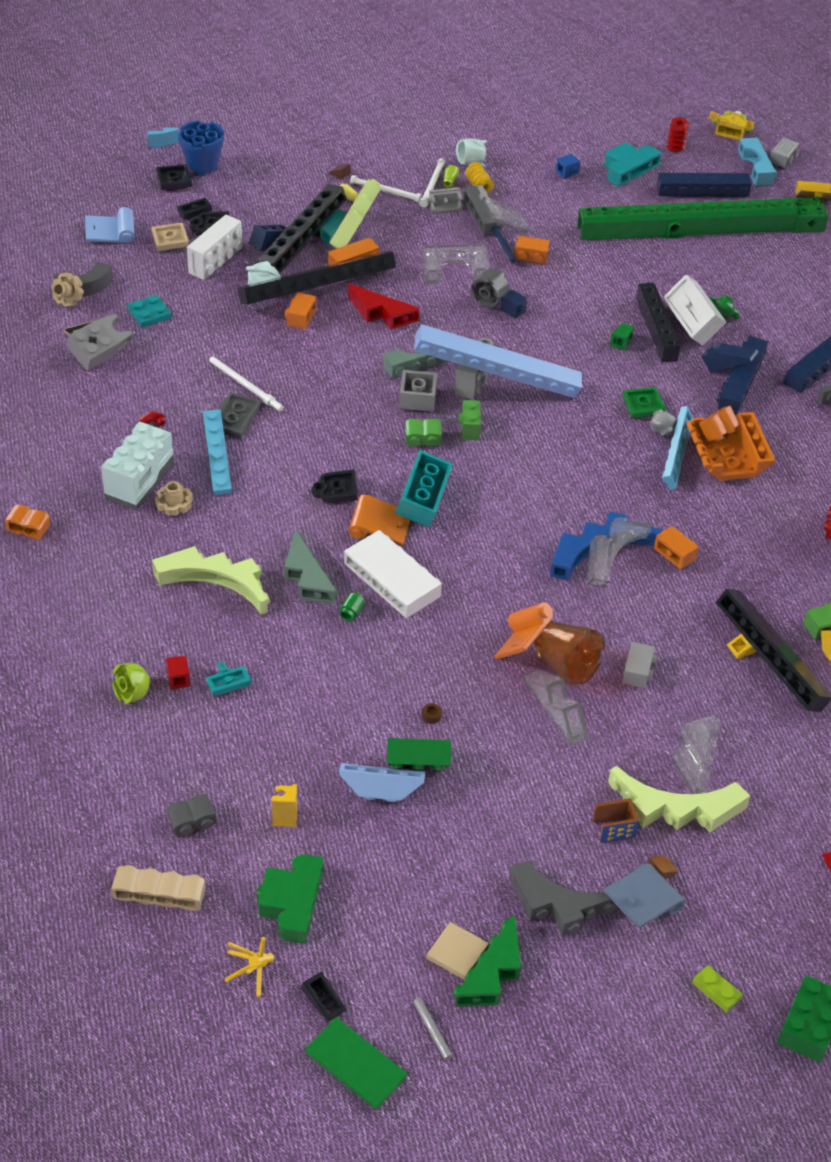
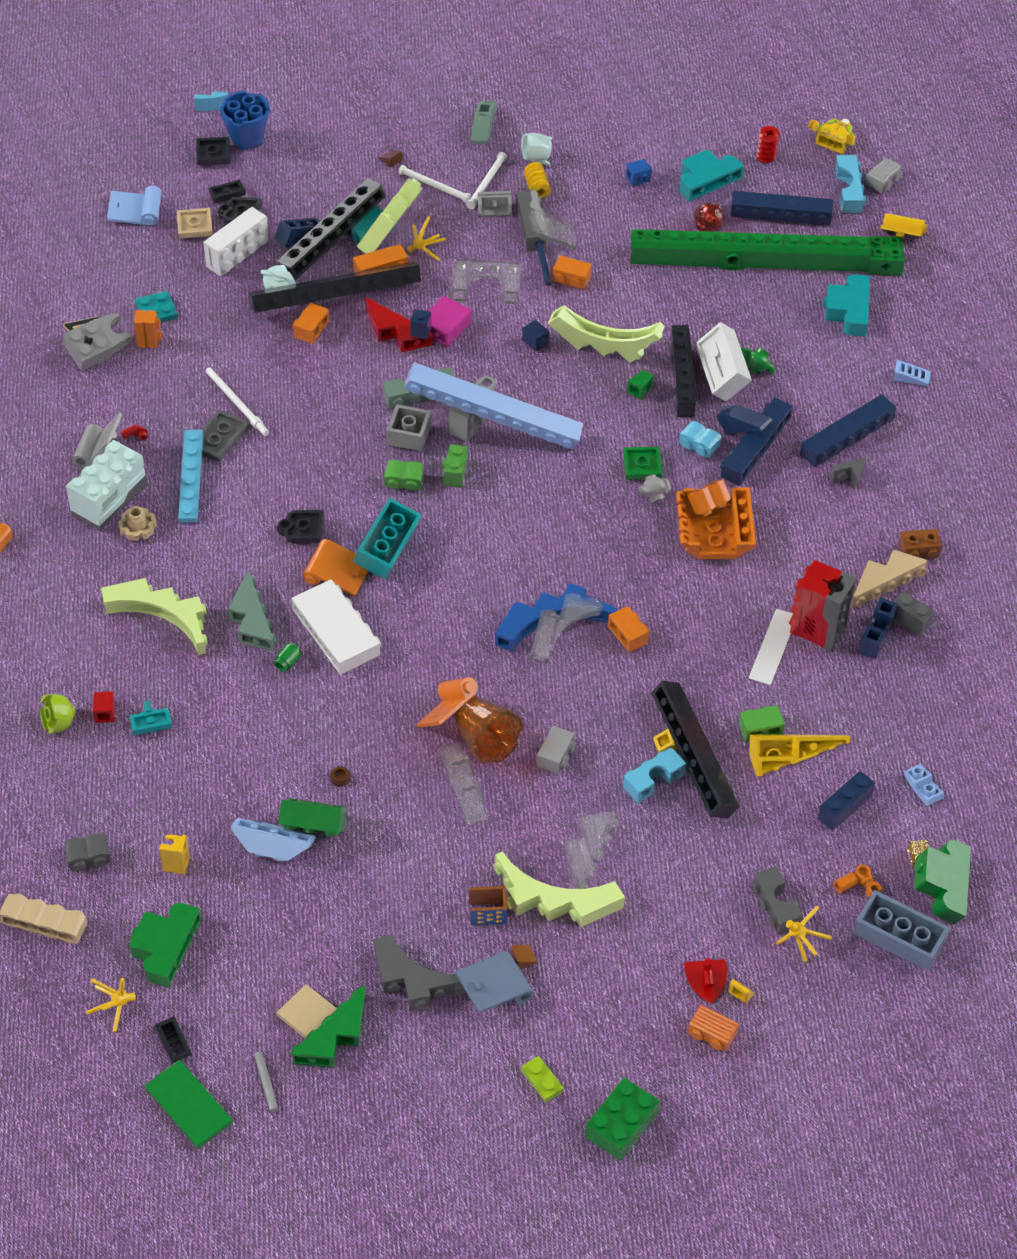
camera: 10 degrees right, 5 degrees up
(67, 289) = (75, 278): tan plant -> none
(96, 279) = (97, 272): dark grey arch -> none
(117, 428) = (94, 442): none -> light grey door
(146, 326) = (147, 328): none -> orange brick
(350, 193) = (391, 185): light yellow cone -> none
(386, 237) = (419, 243): none -> yellow plant
(408, 299) = (420, 324): none -> dark blue brick
(418, 136) = (483, 121): none -> sand green slope
(429, 297) = (449, 320): none -> dark pink brick
(450, 176) = (508, 173): lime cone -> none
(490, 288) = (513, 315): dark grey brick -> none
(580, 301) = (606, 340): none -> yellowish green arch
(641, 194) = (709, 217): none -> clear red plant
(677, 449) = (661, 520): medium azure plate -> none
(691, 377) = (700, 439): none -> medium azure brick
(749, 668) = (665, 765): none -> medium azure arch
(789, 256) = (849, 304): none -> teal brick
(813, 552) = (772, 648): none -> white sticker

